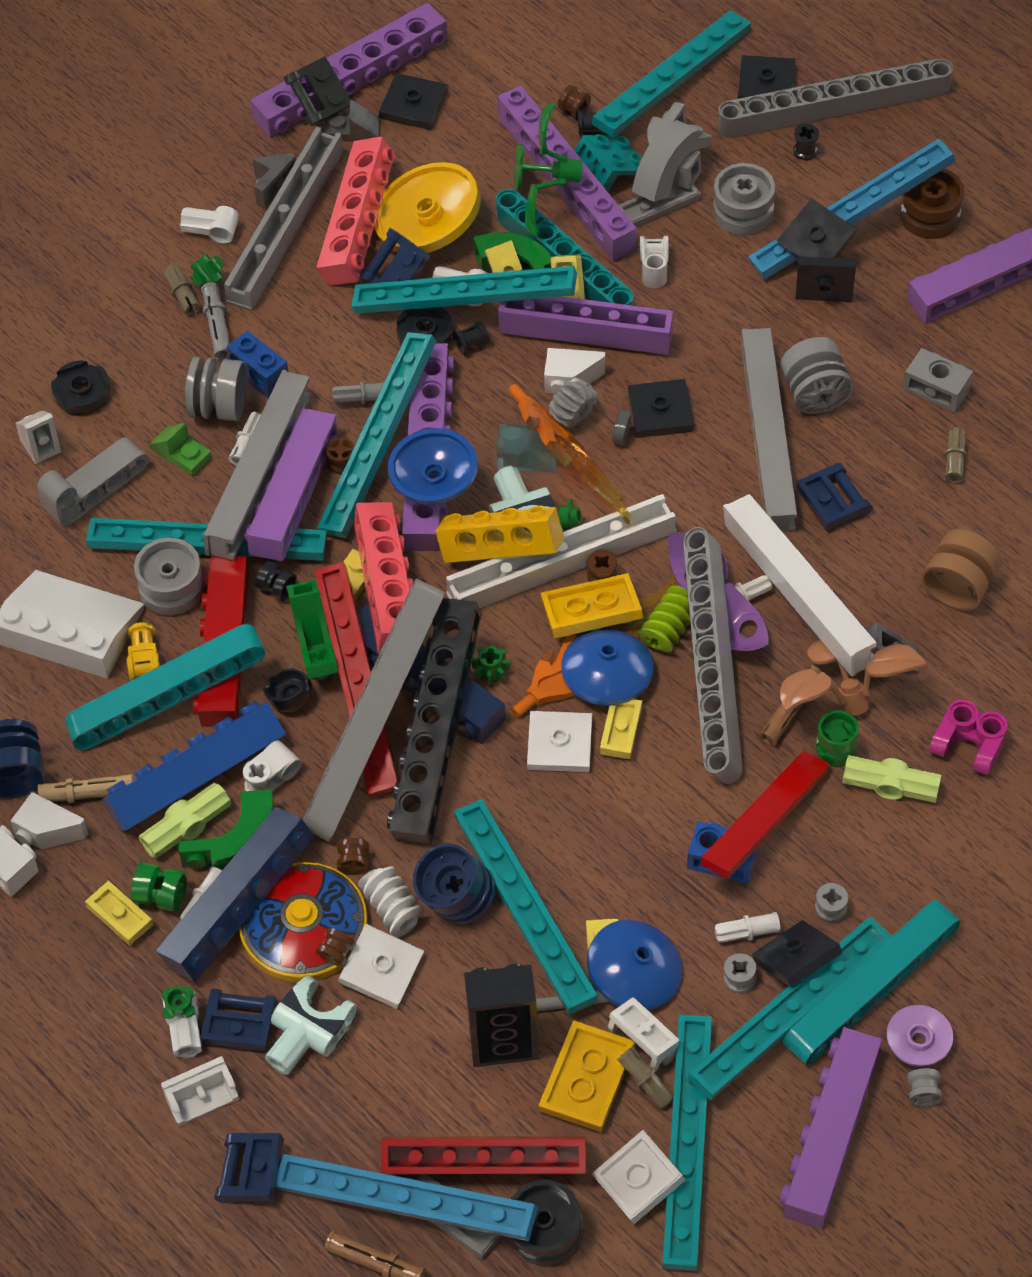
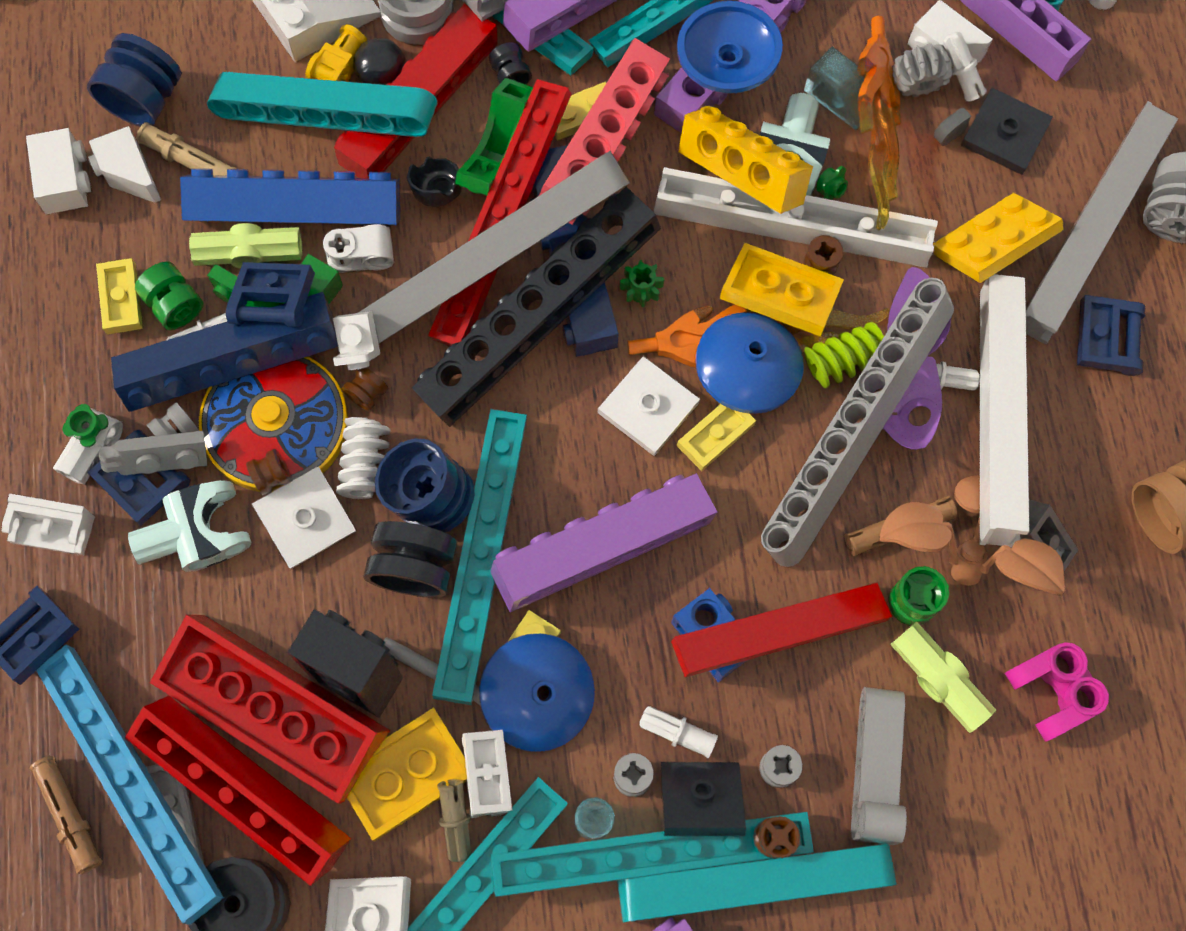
camera: 30 degrees right, 15 degrees up
(176, 637) = (378, 61): none -> black hair
(237, 970) = (178, 417): none -> light grey wheel
(238, 822) = (270, 284): none -> dark blue plate
(244, 988) = (155, 453): none -> light grey hinge
(325, 823) = (356, 340): none -> white bracket
(458, 1095) = (268, 706): none -> red arch
(482, 934) = (410, 559): none -> black wheel
(600, 382) = (964, 66): none -> white axle
(602, 840) = (602, 541): none -> medium lavender brick
(710, 480) = (997, 237): none -> yellow plate
(732, 1021) = (594, 824): none -> clear light blue wheel
(868, 933) = (783, 833): none -> reddish brown wheel
(898, 867) = (878, 768): none -> light grey beam

